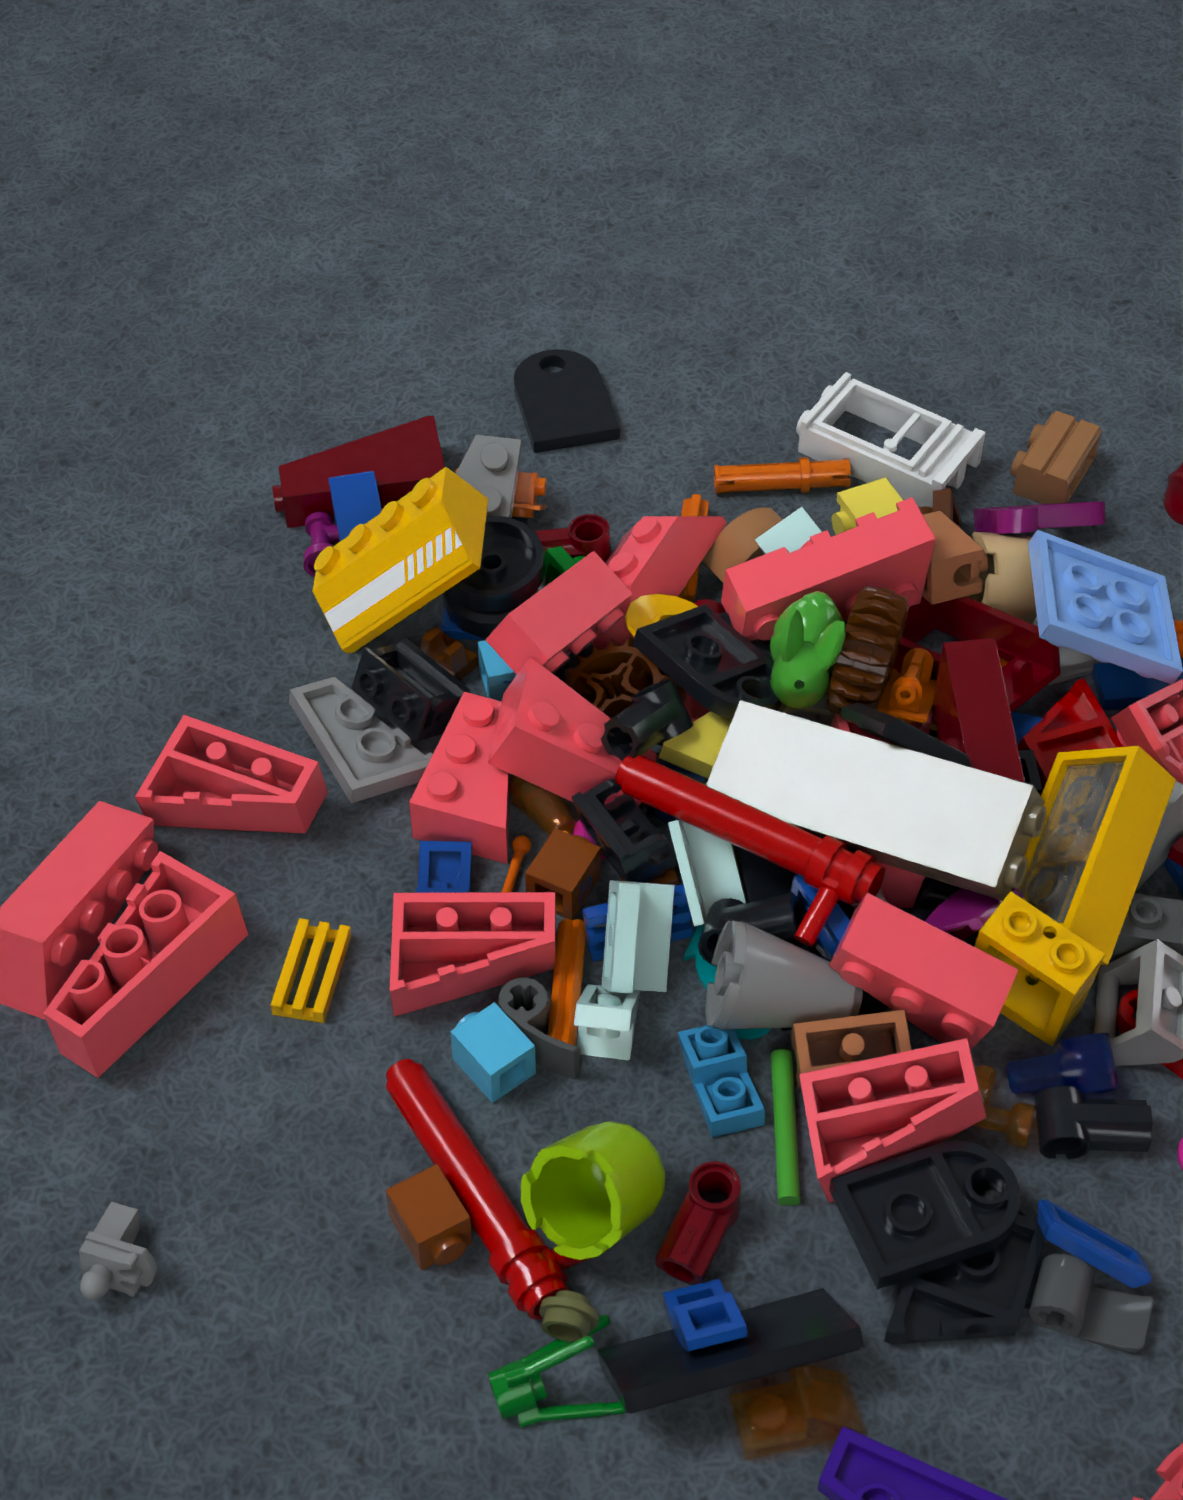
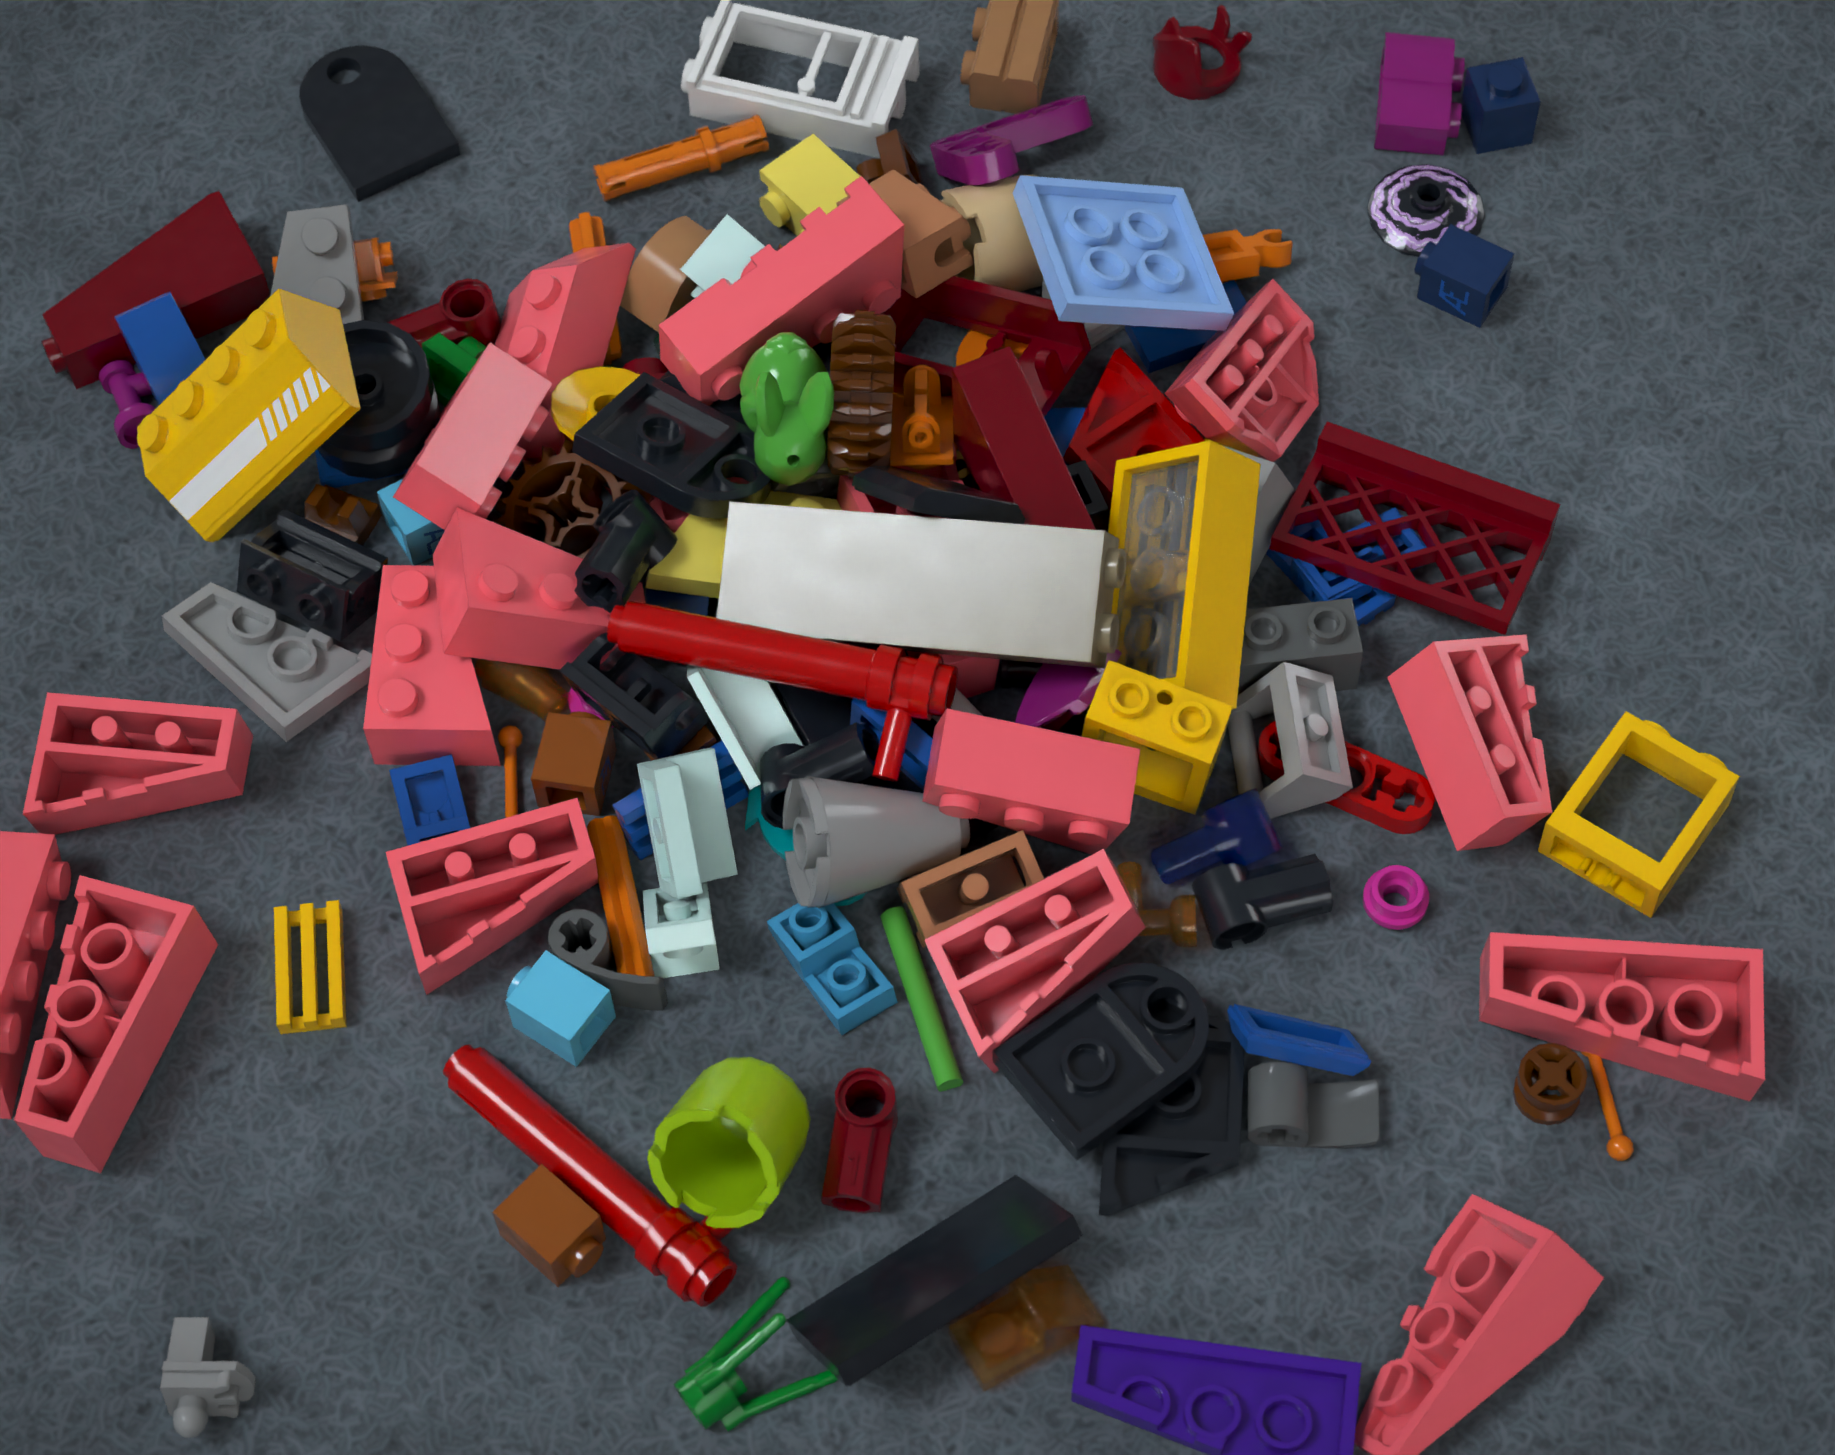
camera: 15 degrees left, 10 degrees up
(568, 1316) = (745, 1294): olive plate -> none
(704, 1315) = (896, 1249): blue slope -> none

